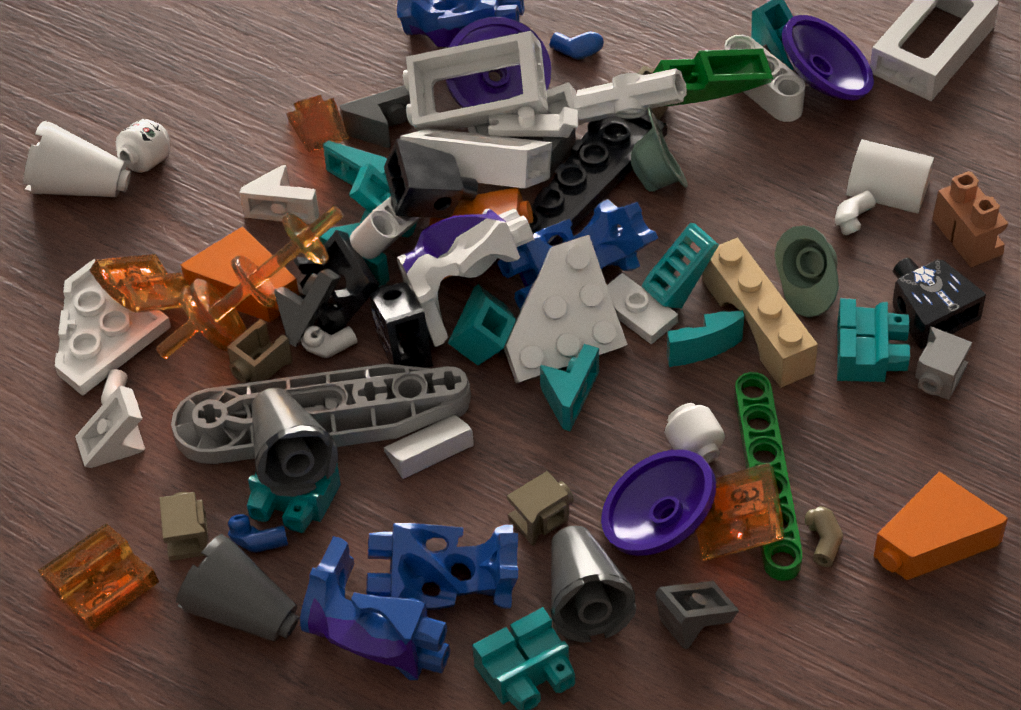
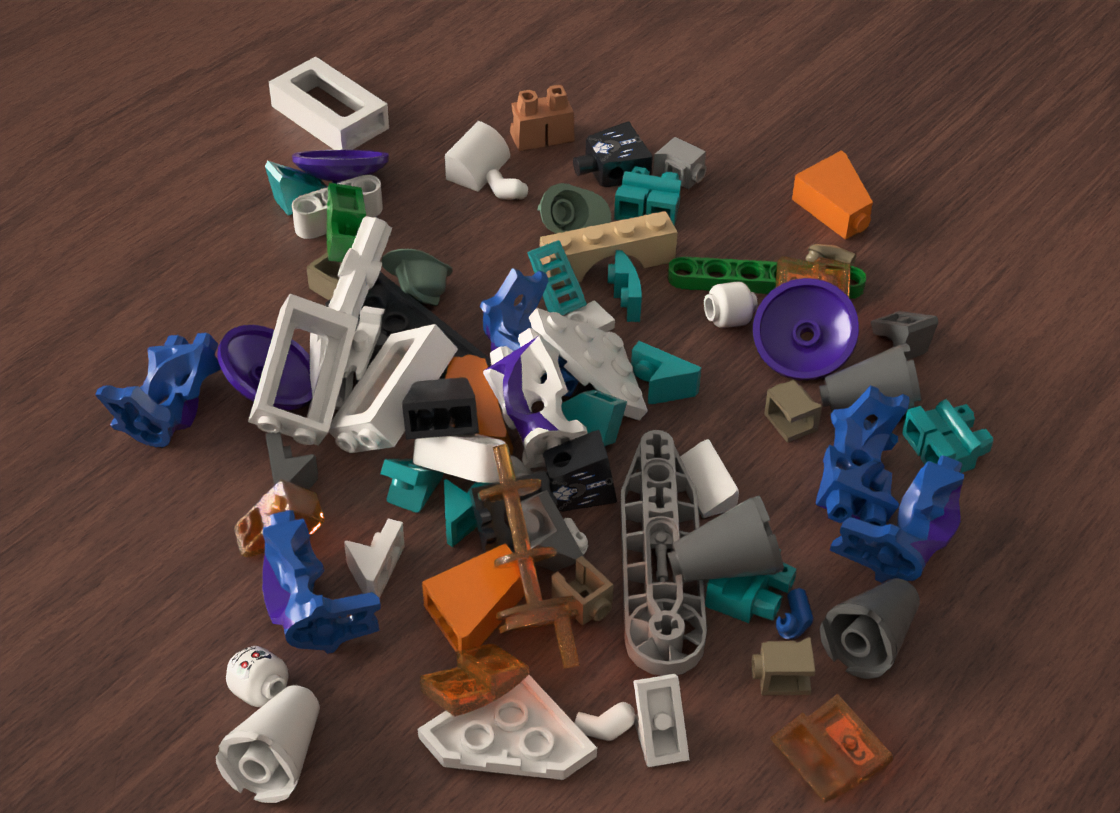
camera: 85 degrees left, 5 degrees down
(245, 131) = (289, 591): none -> blue hips
(352, 161) = (356, 493): teal slope -> none
(579, 46) = (242, 315): blue arm -> none

